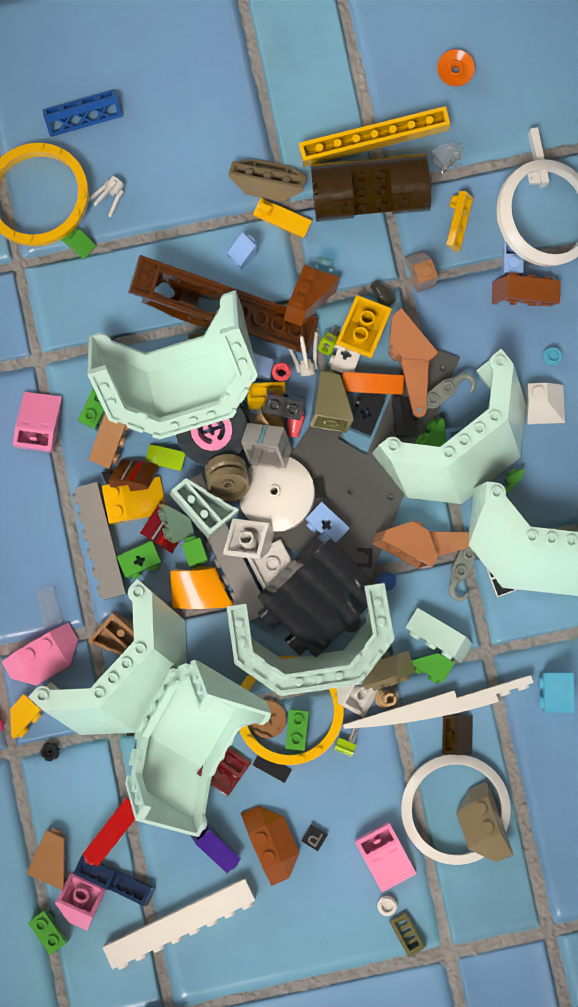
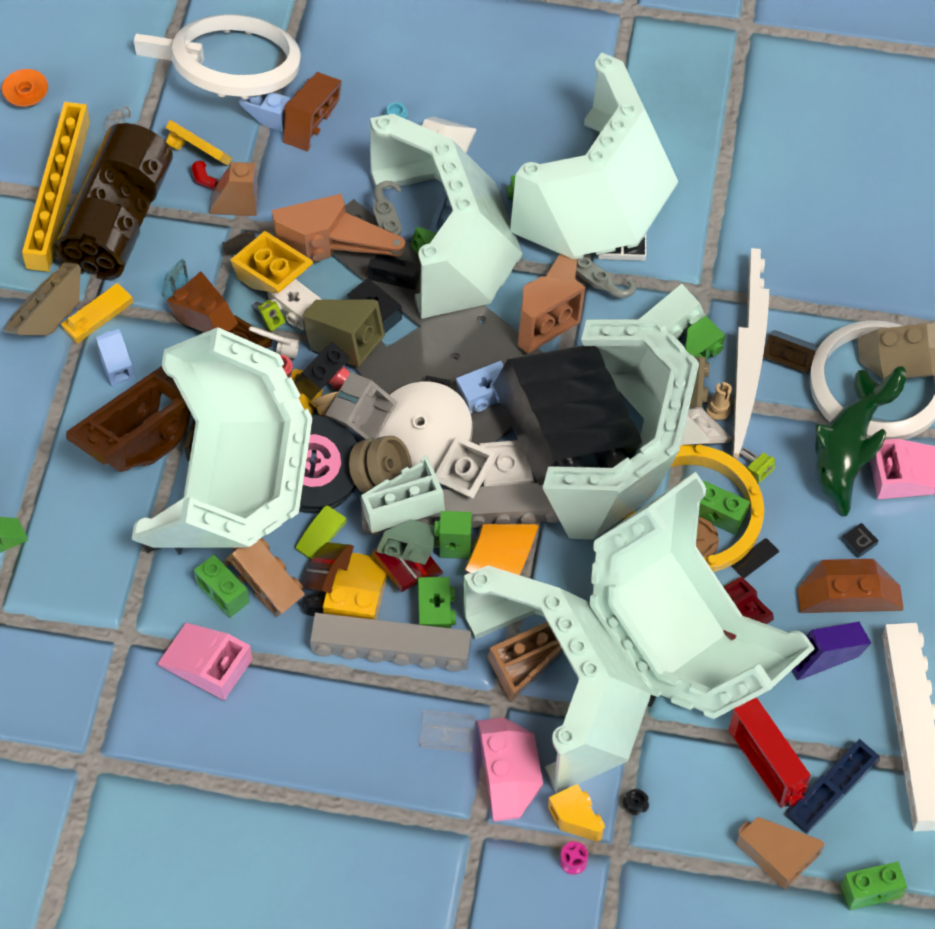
camera: 70 degrees left, 25 degrees down
(79, 900) = (850, 829): bright pink slope -> none
(373, 382) = (343, 276): orange slope -> none
(378, 802) = (844, 443): none -> dark green animal
(432, 235) = (200, 175): none -> red arm
(557, 692) = (782, 224): medium azure slope -> none

